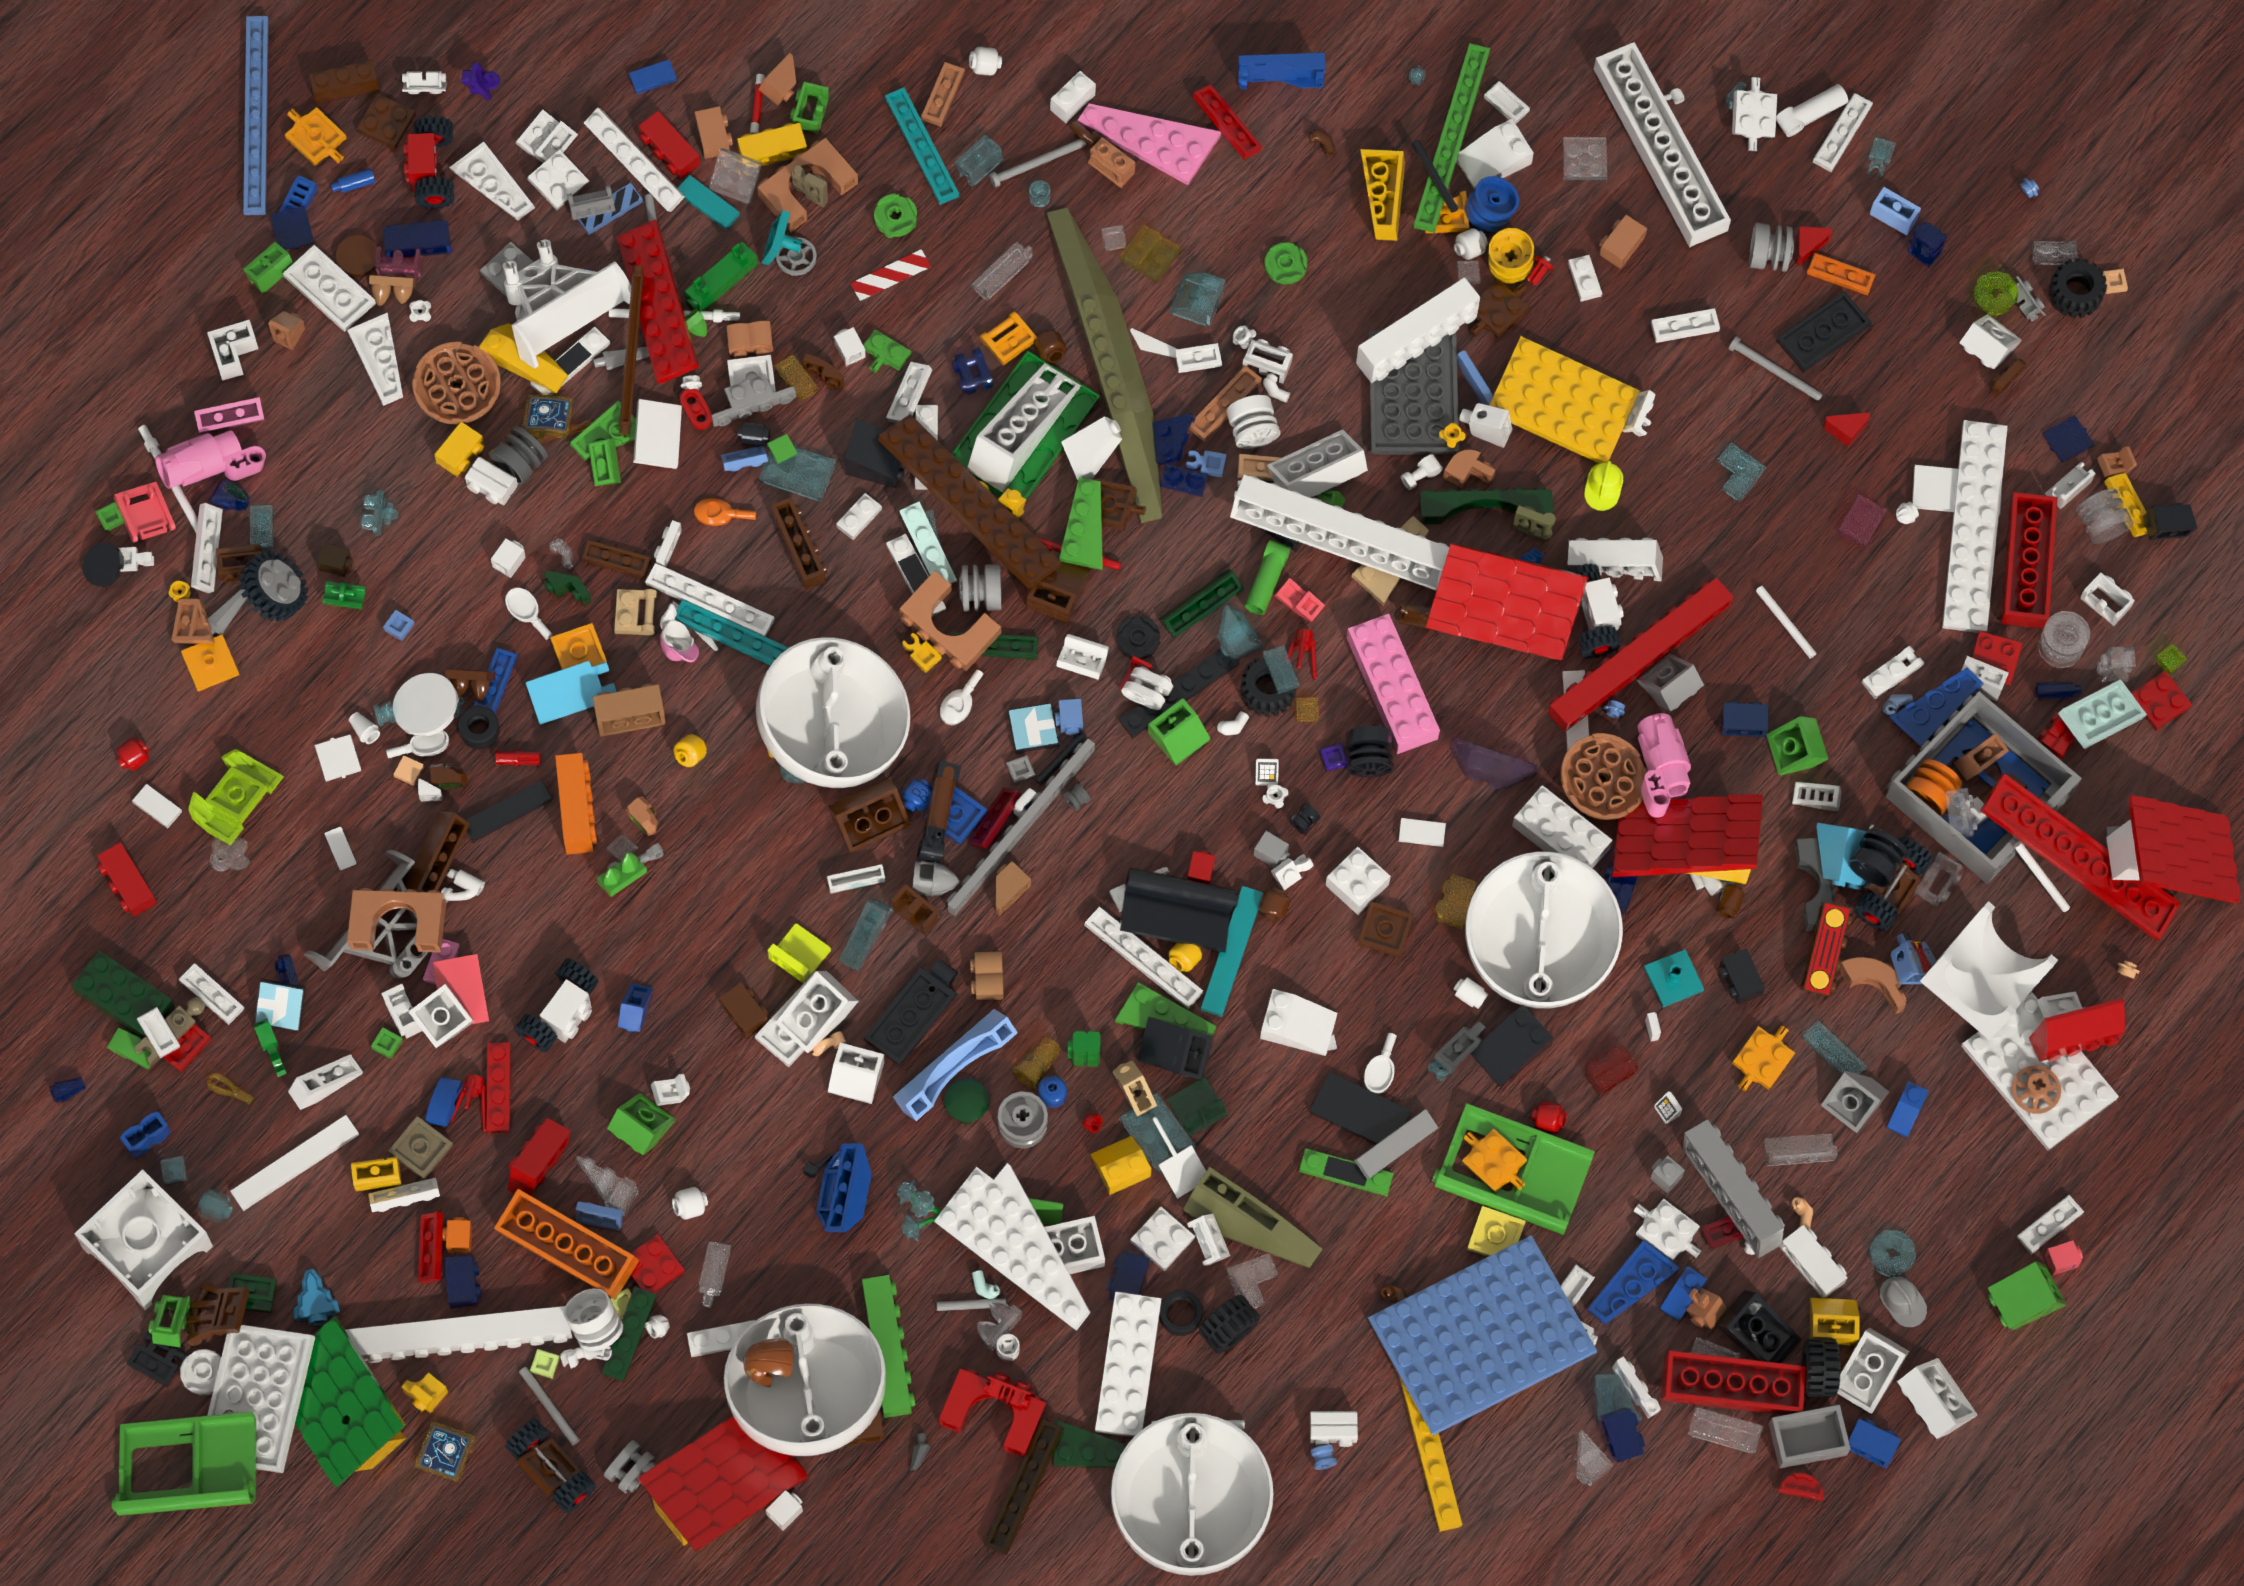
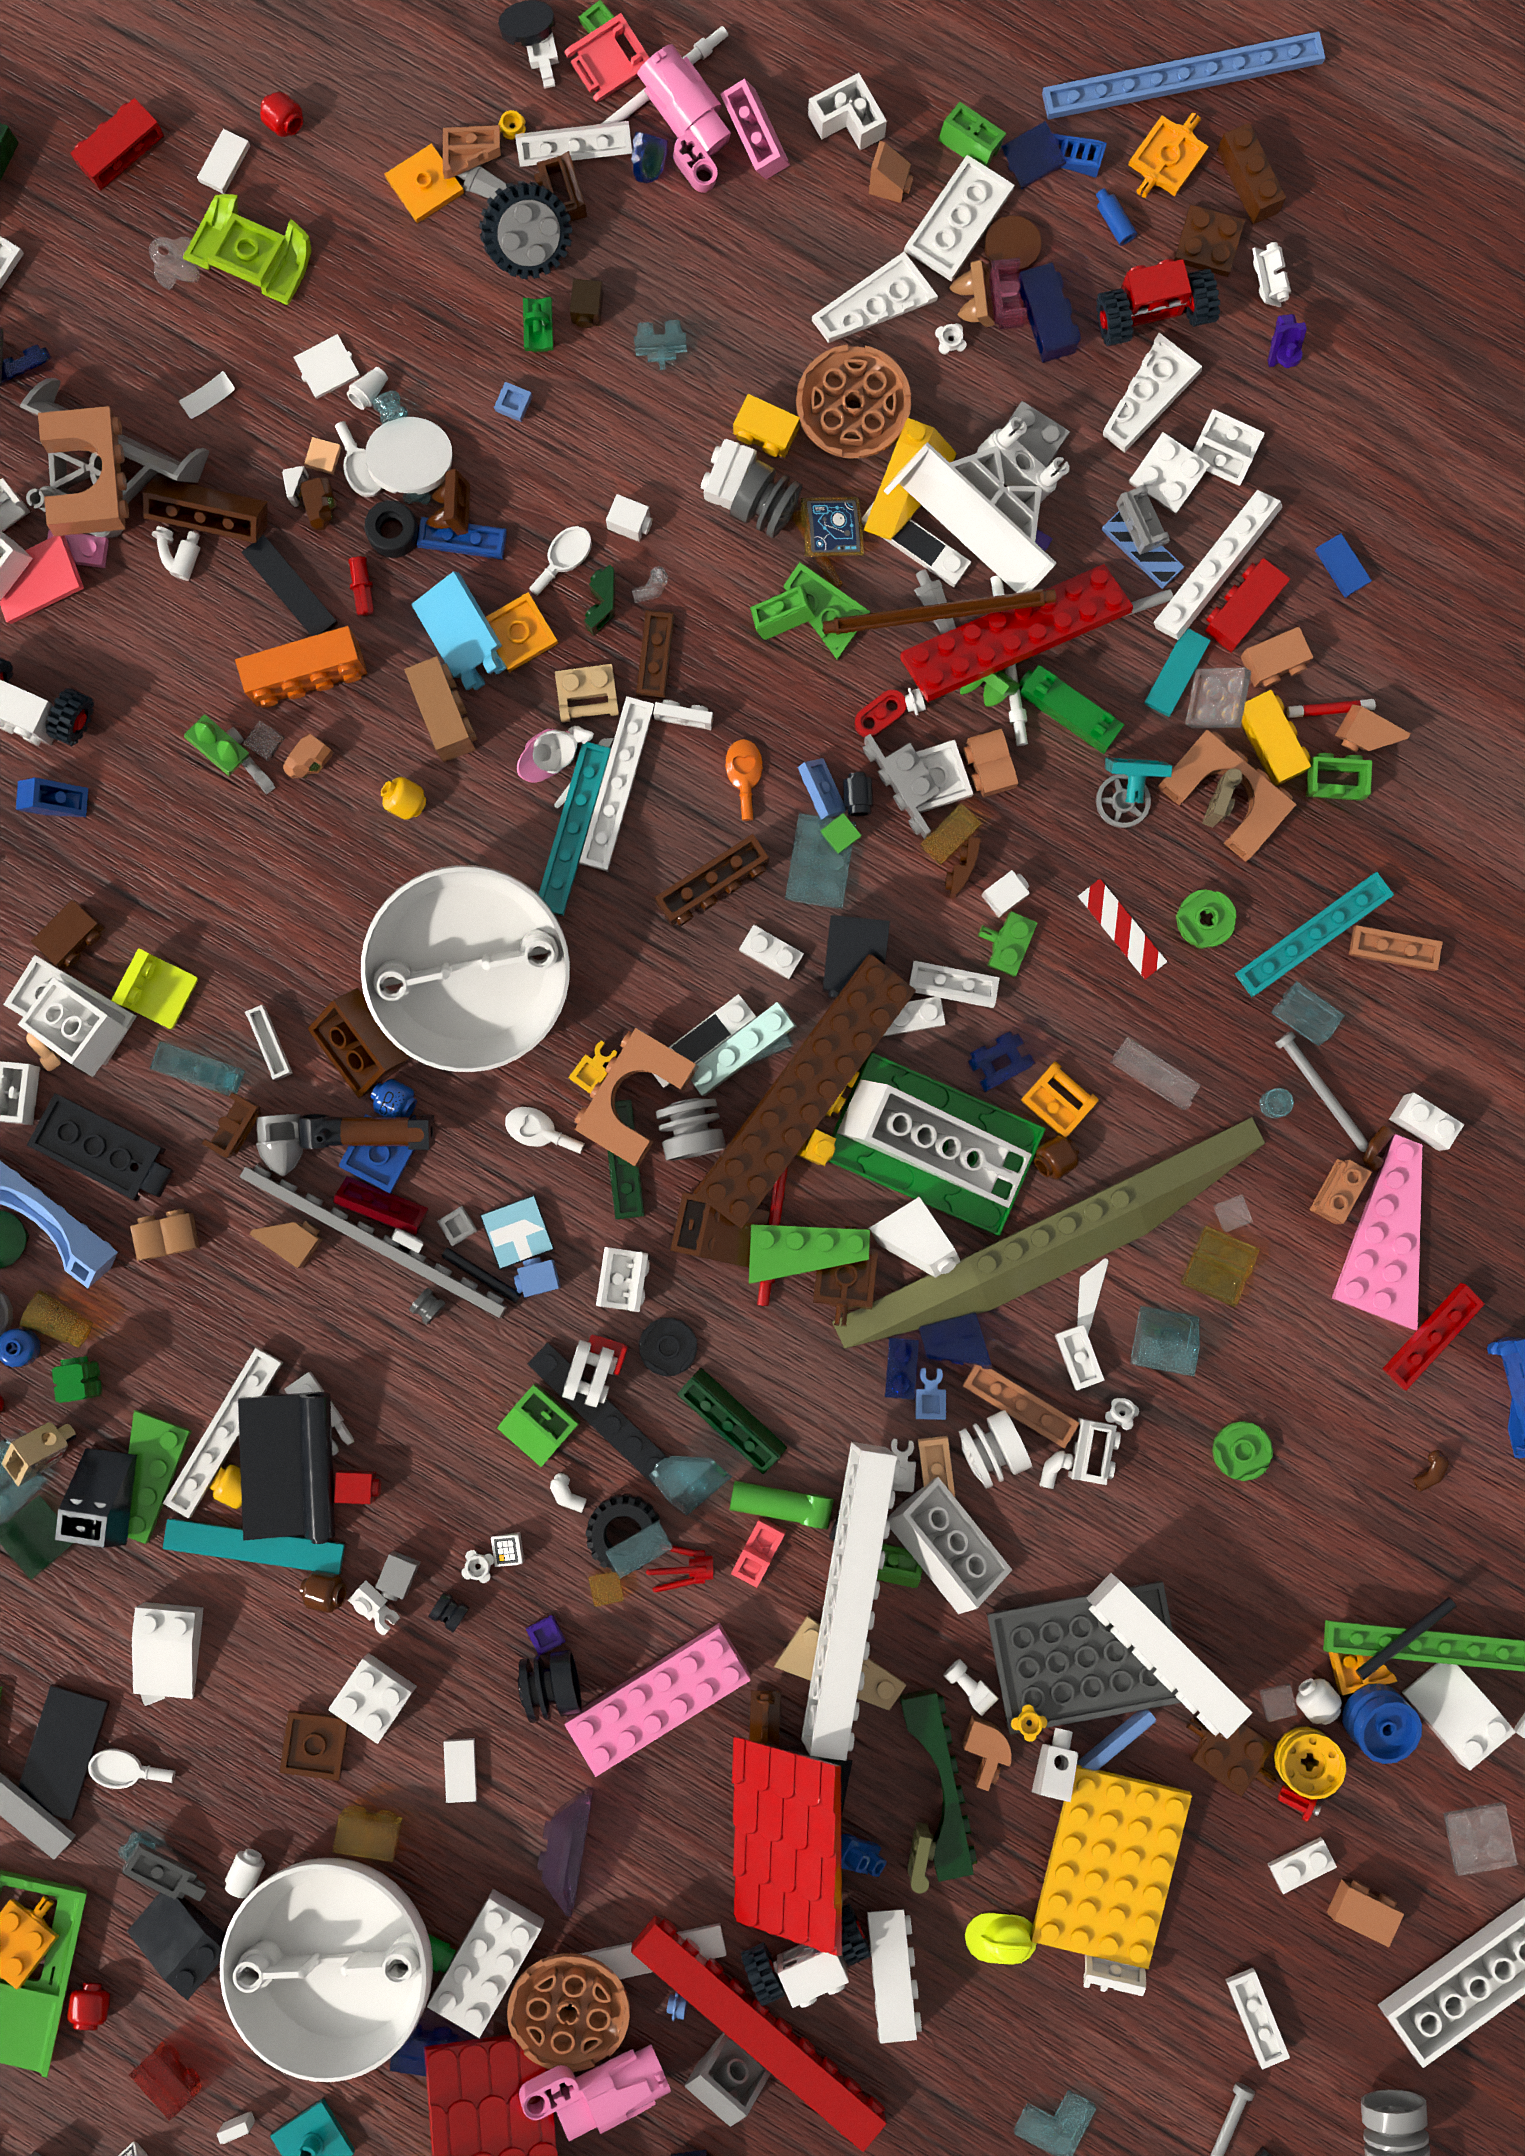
camera: 80 degrees right, 15 degrees up
(261, 526) = (615, 205): clear light blue plate -> none
(657, 434) = (835, 671): white tile -> none
(985, 61) = (1455, 994): white head -> none
(1384, 185) = (1381, 1567): yellow wedge -> none

